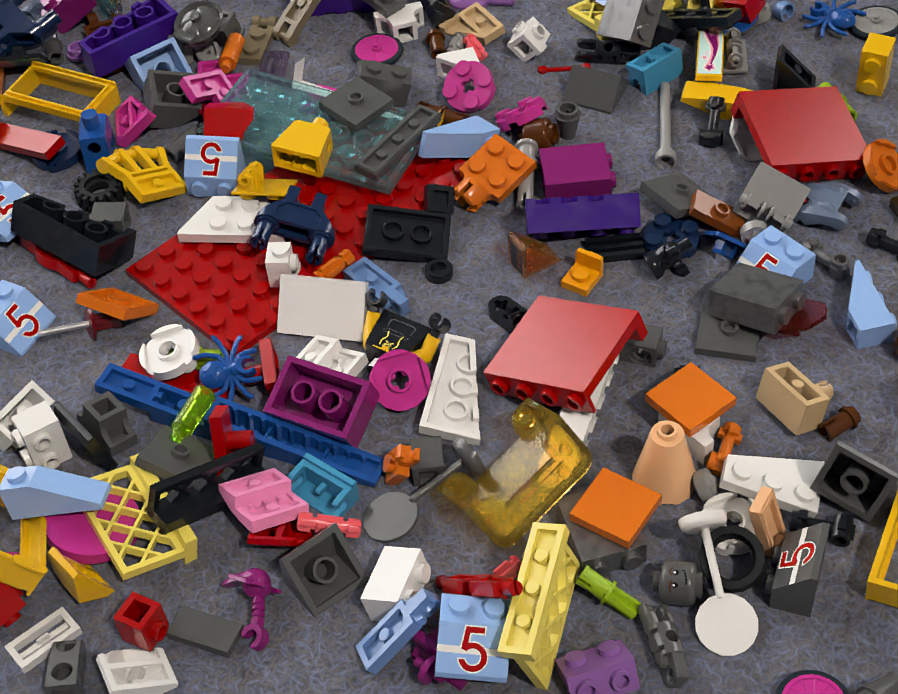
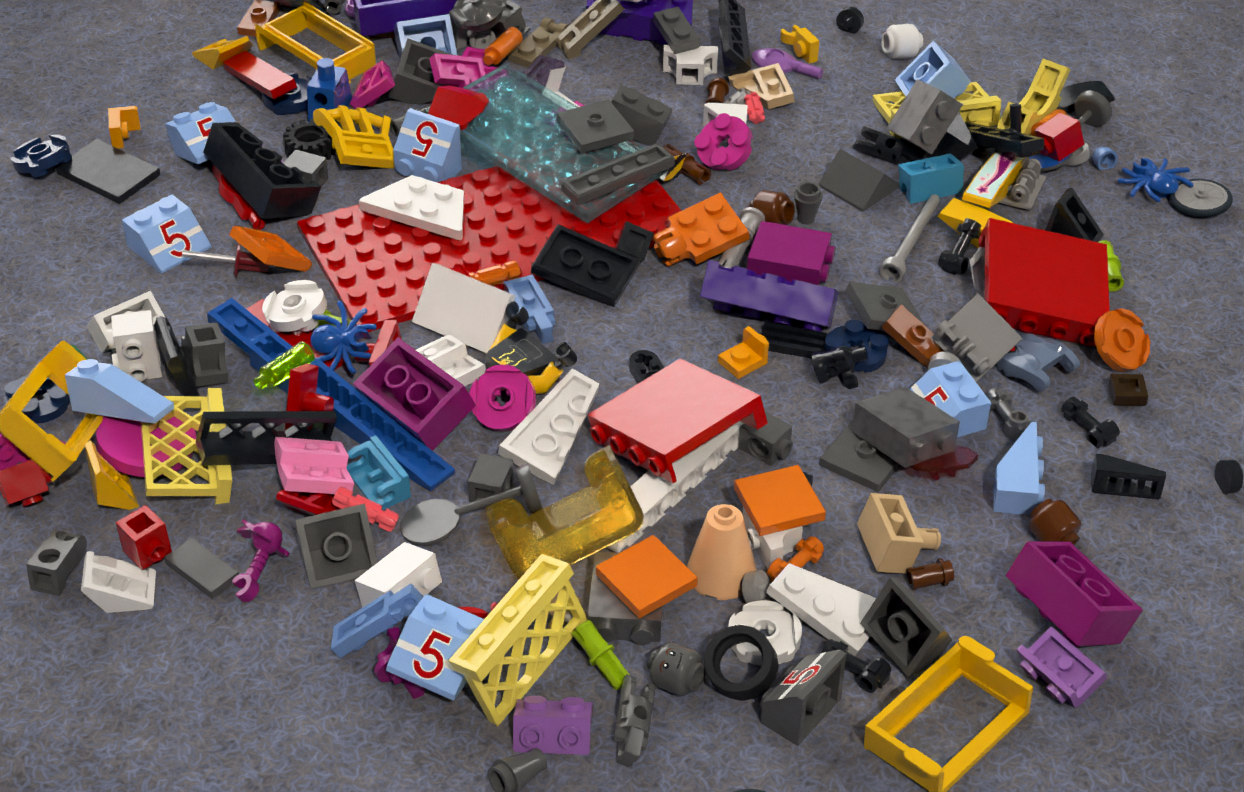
camera: 15 degrees right, 5 degrees down
(42, 648) = (50, 522): white tile -> none
(169, 458) = (243, 395): dark grey plate -> none
(253, 184) = (456, 171): yellow hinge -> none
(279, 261) = (443, 250): white brick -> none
(296, 222) = (477, 220): dark blue connector -> none
(304, 147) = (519, 151): yellow torso -> none
(377, 47) = (654, 83): dark pink wheel -> none
(398, 463) = (459, 472): orange plate -> none
(438, 271) = (601, 311): black tile -> none
(457, 138) = (680, 187): light blue slope -> none
(479, 585) = (468, 599): red piece -> none
(528, 39) = (817, 112): white brick -> none
(528, 110) = (773, 180): dark pink plate -> none
(529, 255) = (699, 320): clear orange slope -> none
(544, 69) = (817, 149): red hinge -> none
(724, 244) = (903, 364): blue piece -> none
(724, 621) = (706, 719): white piece -> none
(767, 520) = (793, 633): light nougat tile -> none
(875, 64) = (1167, 236): yellow brick -> none

